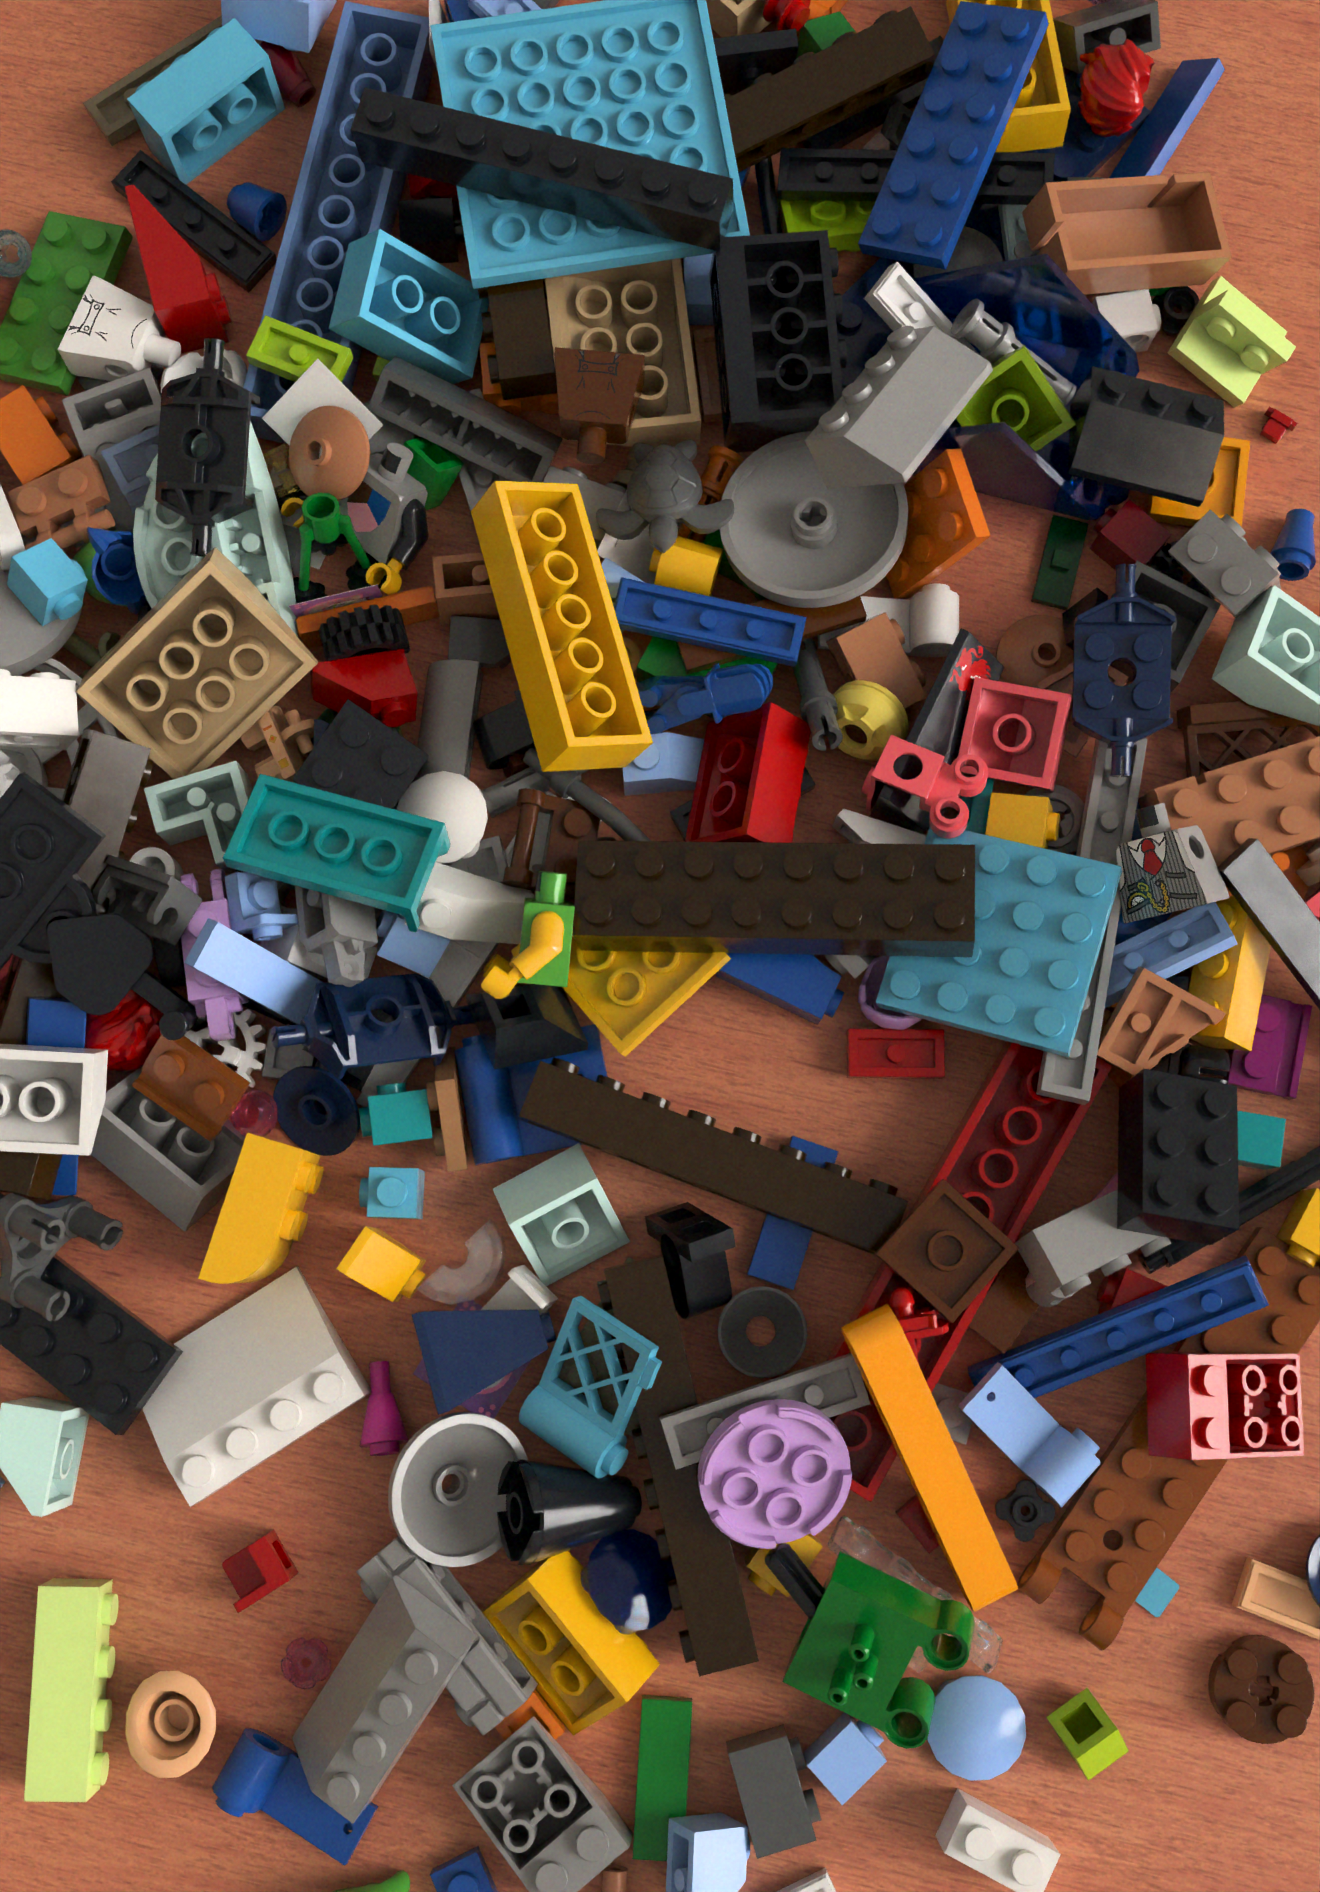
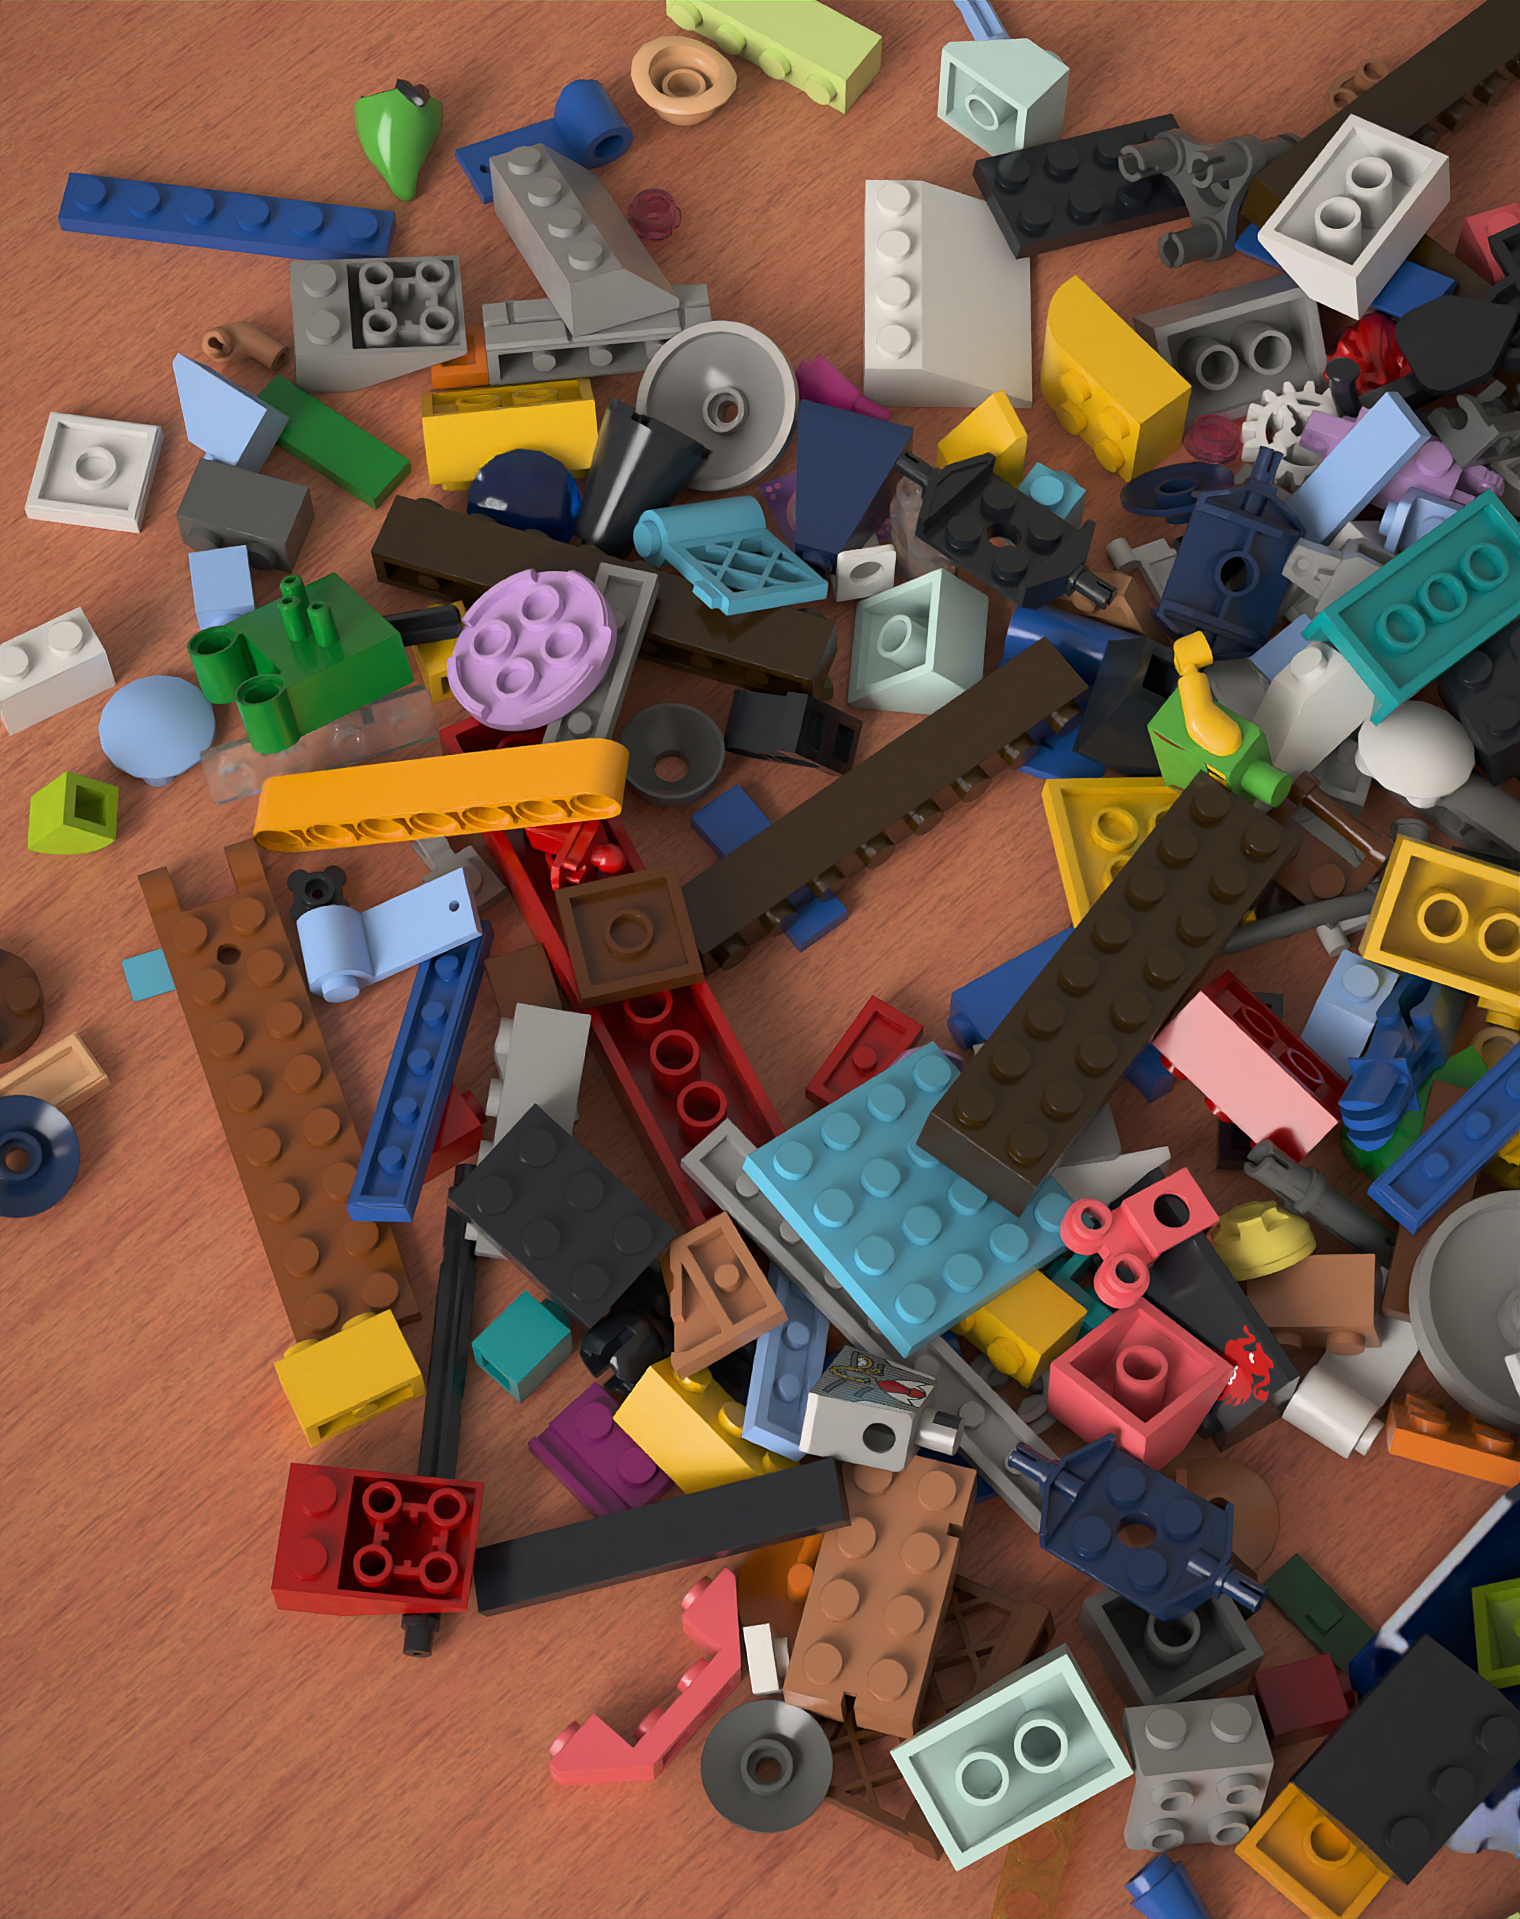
camera: 125 degrees right, 15 degrees down
(191, 1085) = (1273, 387): dark orange plate -> none
(259, 1569) = (765, 225): red panel -> none
(396, 1115) = (1126, 541): teal brick -> none
(434, 1231) = (971, 504): none -> black plate
(1224, 1405) = (275, 1128): red slope -> none

